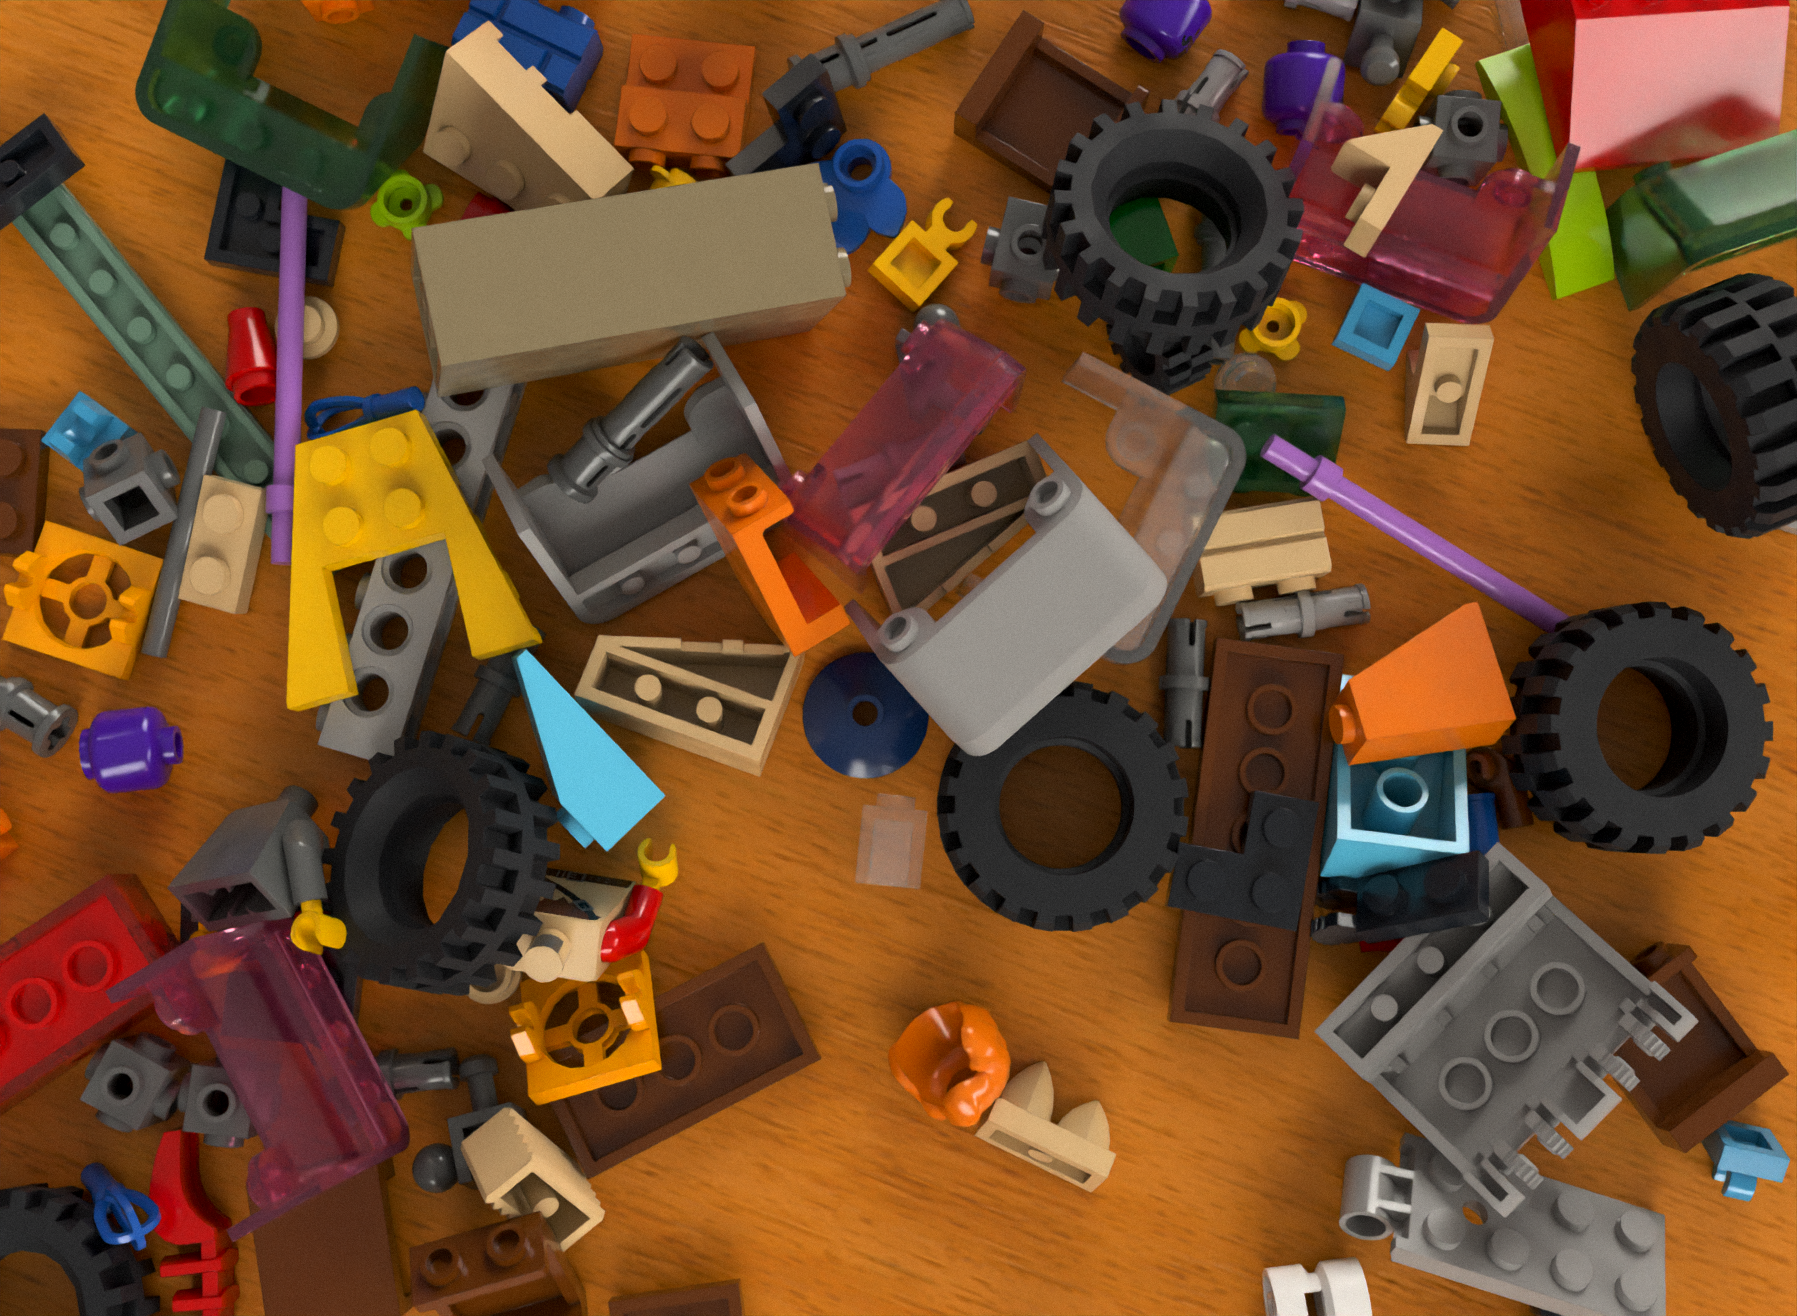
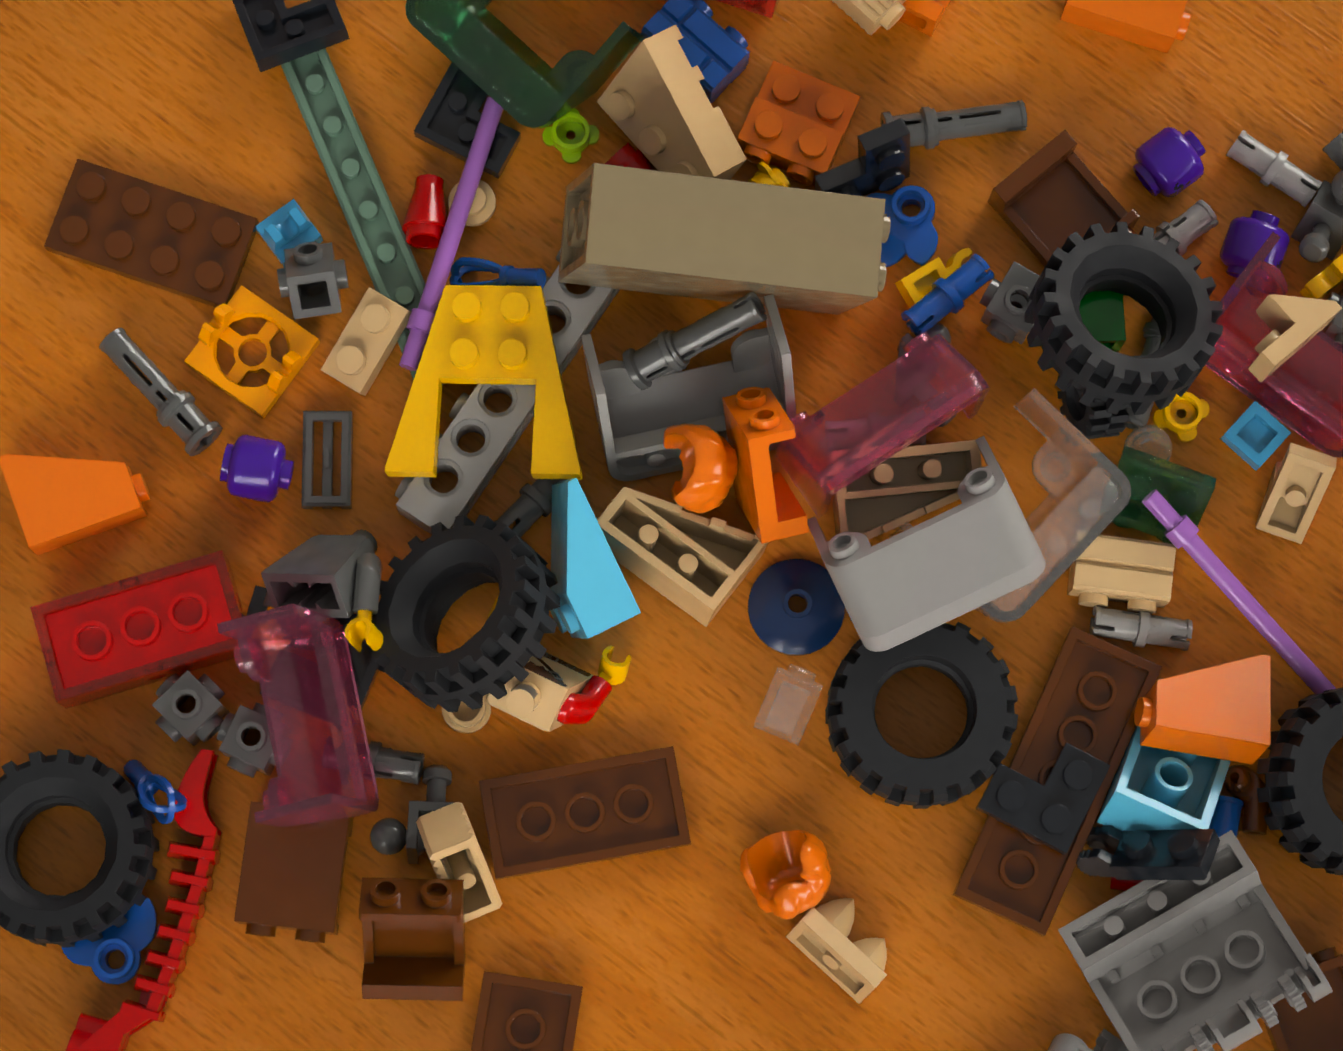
camera: 10 degrees right, 5 degrees down
(166, 600) = (312, 366): dark grey bar -> none
(246, 701) = (328, 418): none -> dark grey tile
(632, 1059) = (557, 796): light orange piece -> none
(699, 580) = (707, 466): none -> orange hair
(938, 265) = (948, 295): none -> blue pin
(1184, 682) = (1039, 652): dark grey pin -> none

